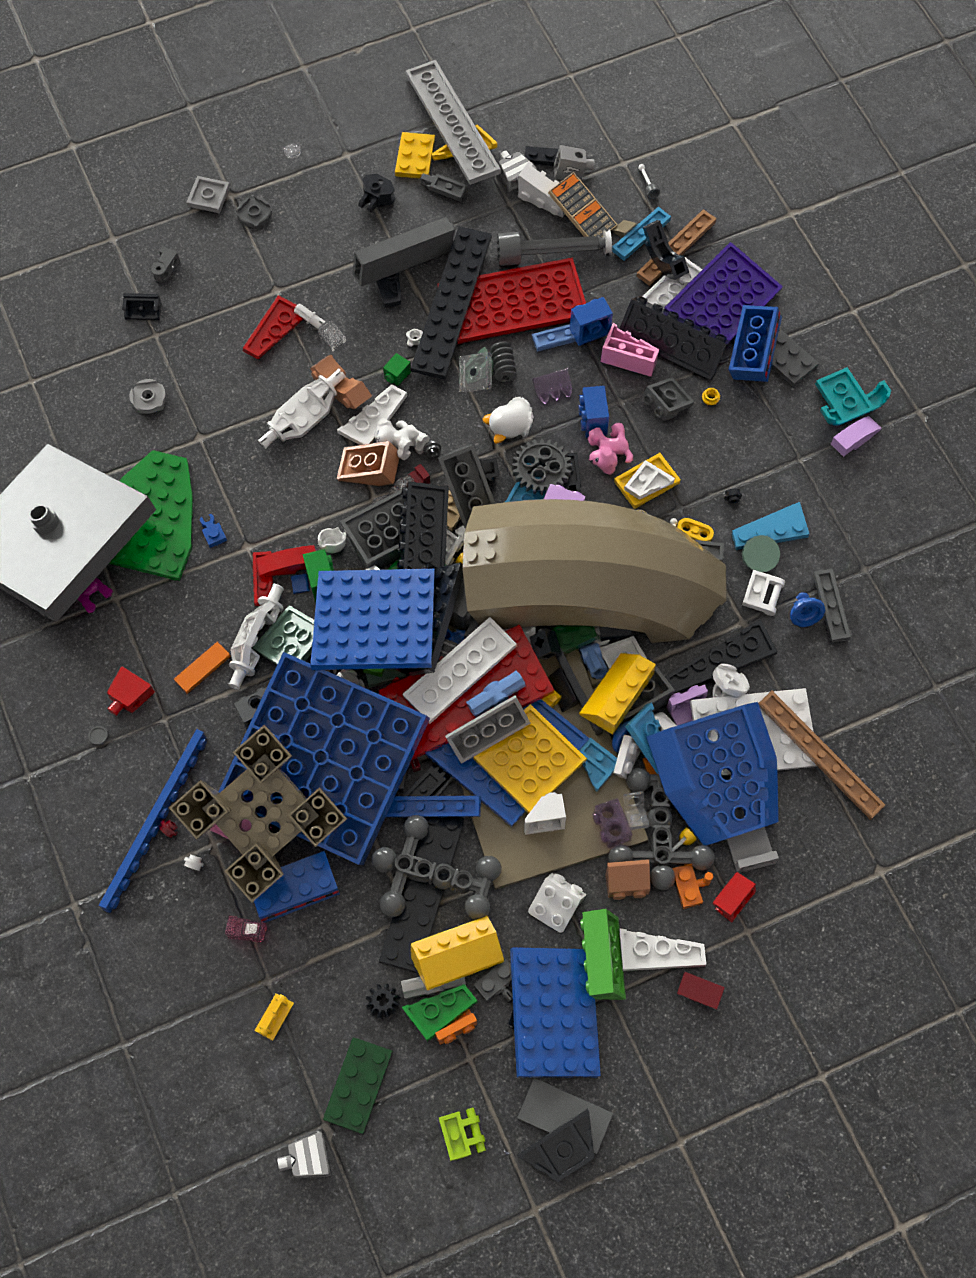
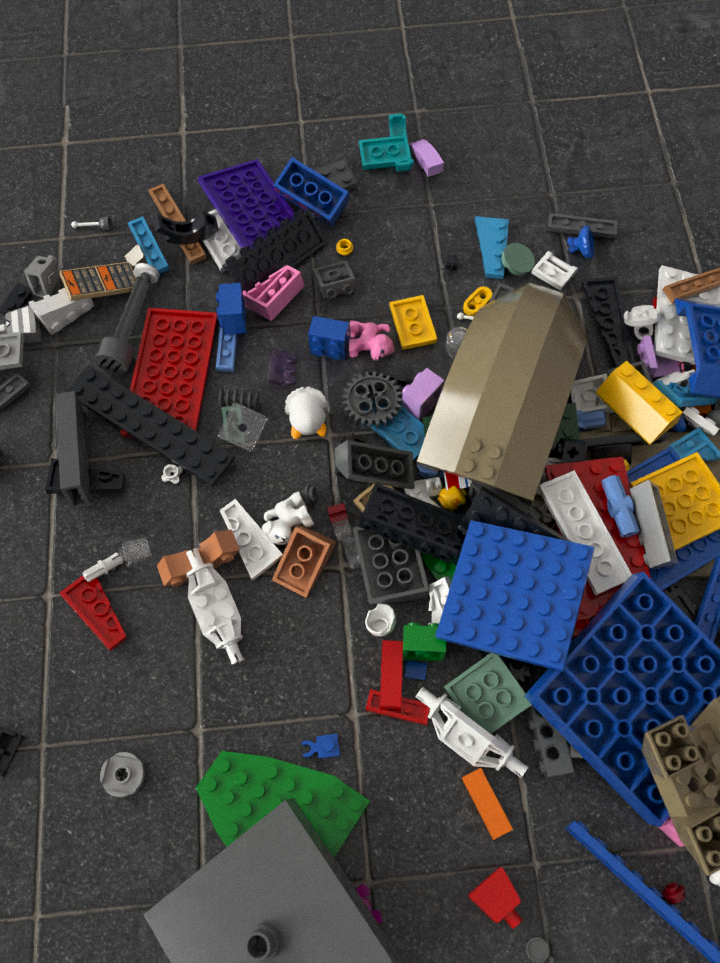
camera: 70 degrees left, 0 degrees up
(397, 369) = (203, 500): green brick -> none
(648, 480) = (418, 318): white wing -> none

